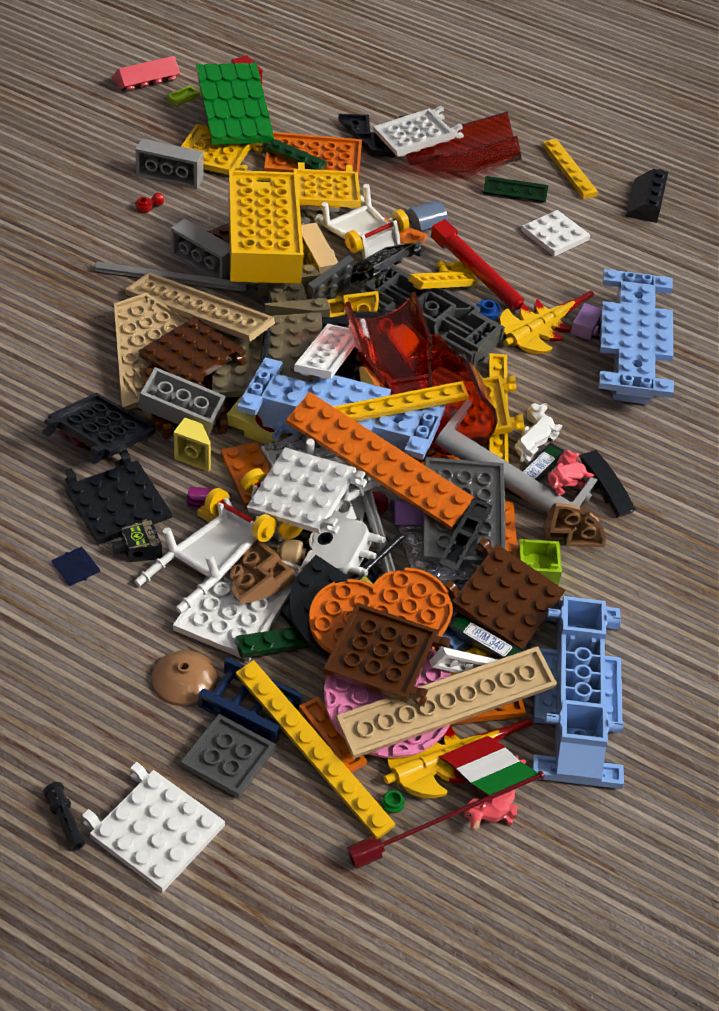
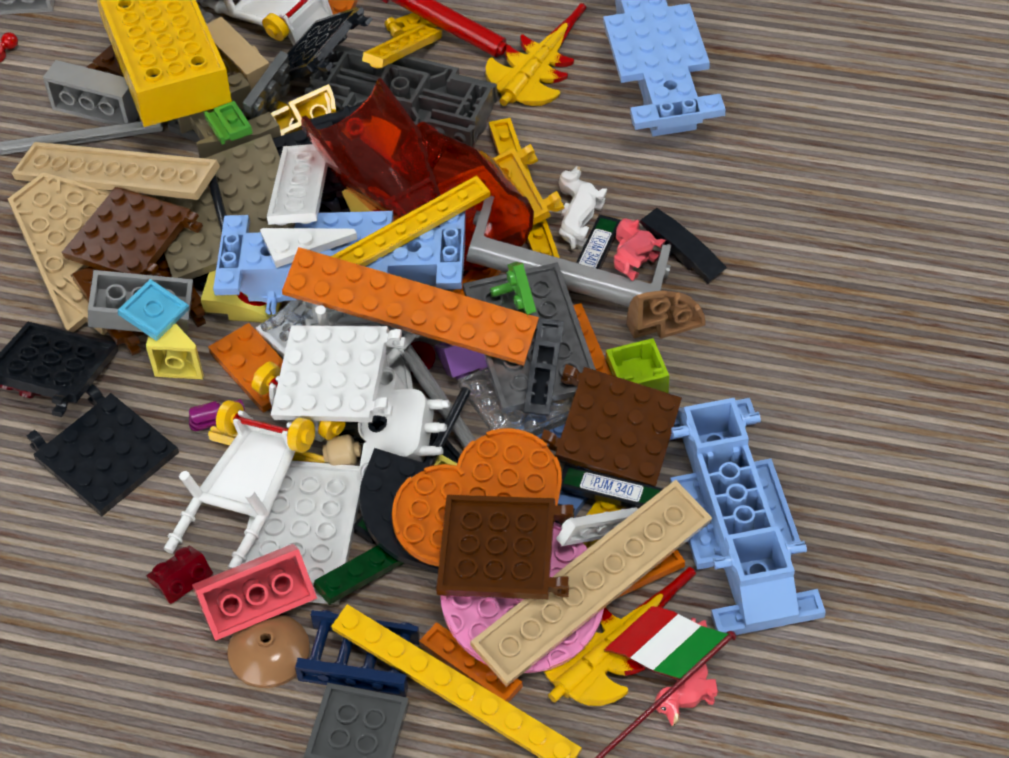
camera: 10 degrees left, 5 degrees up
(75, 566) = (84, 552): clear blue piece -> none
(139, 542) = (152, 497): black torso -> none
(139, 602) = (179, 572): none -> dark red bracket
(188, 408) = (153, 309): none -> medium azure tile
(188, 630) = (254, 591): none -> coral slope
(259, 574) = (314, 493): medium nougat brick -> none
(293, 296) = (228, 122): none -> bright green plate
(300, 386) = (284, 242): none -> white wing
(393, 801) = (569, 721): green plate -> none
(466, 468) = (519, 283): none -> bright green plate
(489, 309) = (468, 64): blue plate -> none
(587, 322) = (591, 45): lavender brick -> none

